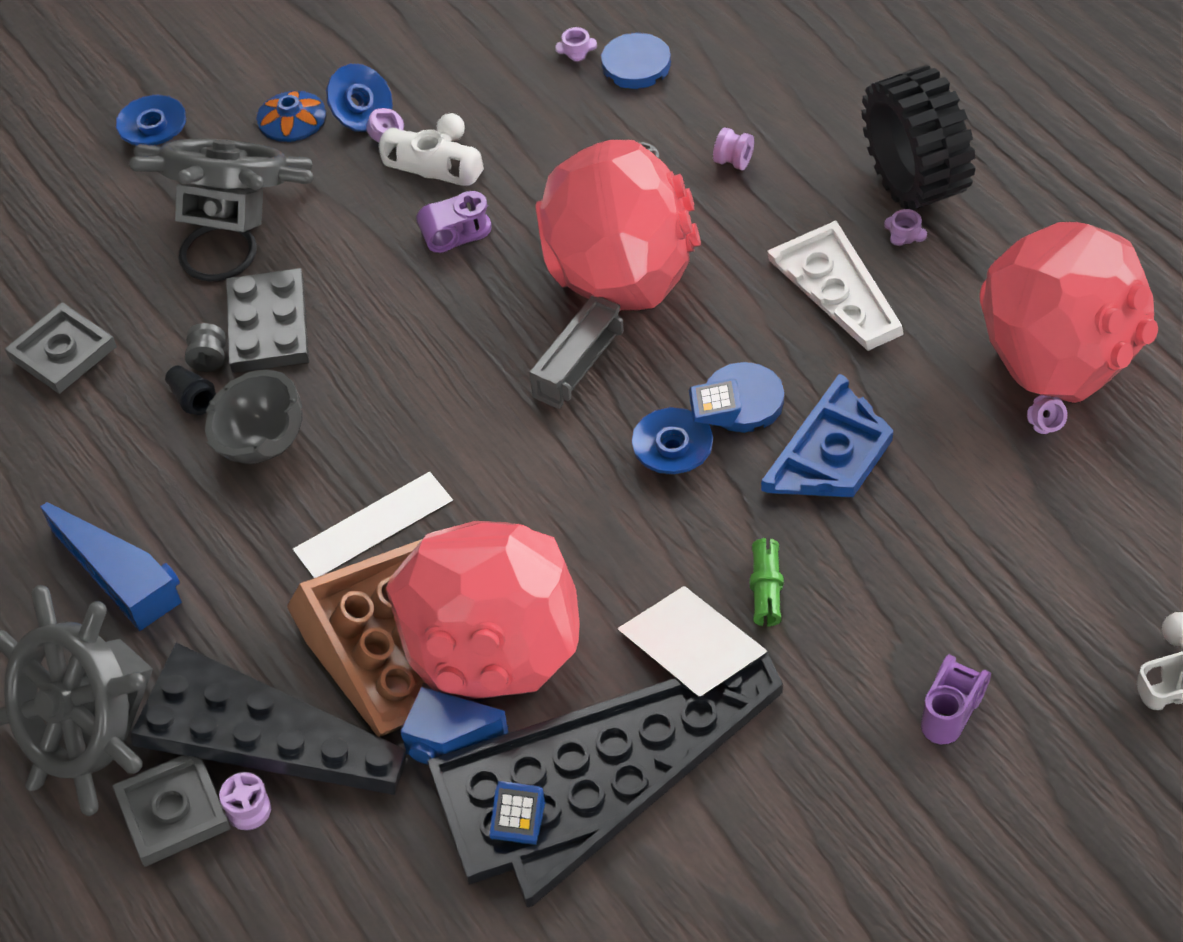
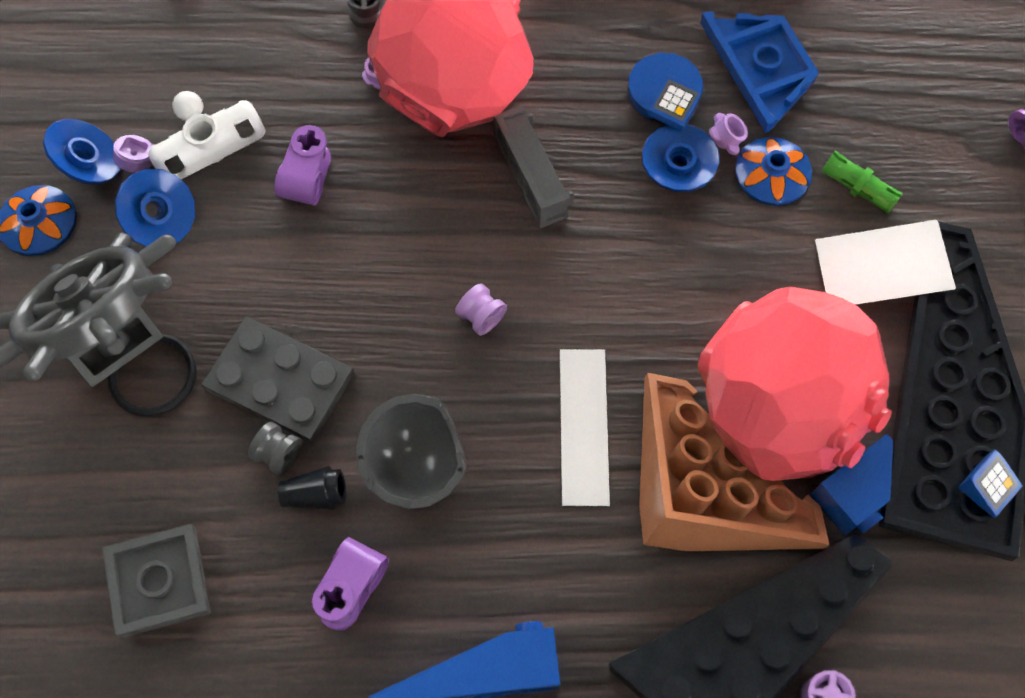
camera: 60 degrees left, 15 degrees up
(132, 450) = (351, 576): none -> medium lavender piece
(330, 153) = (173, 204): none -> blue dish
(416, 395) = (481, 309): none -> lavender wheel
(725, 531) = (768, 182): none -> blue dish
(742, 461) = (728, 132): none -> lavender plate

